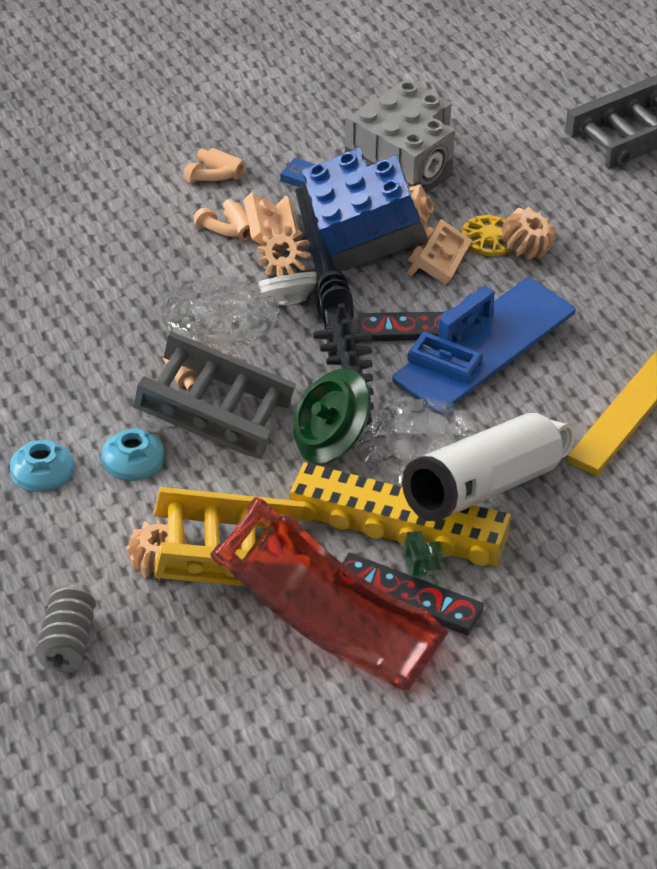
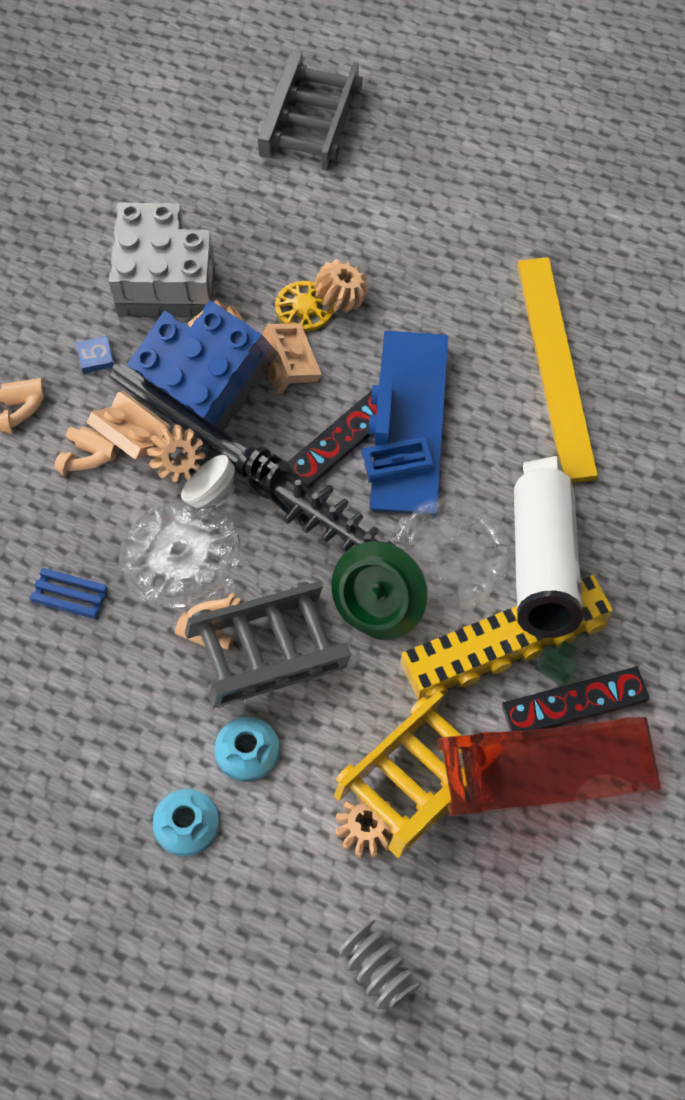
camera: 40 degrees left, 20 degrees up
(114, 302) = (42, 585): none -> blue tile

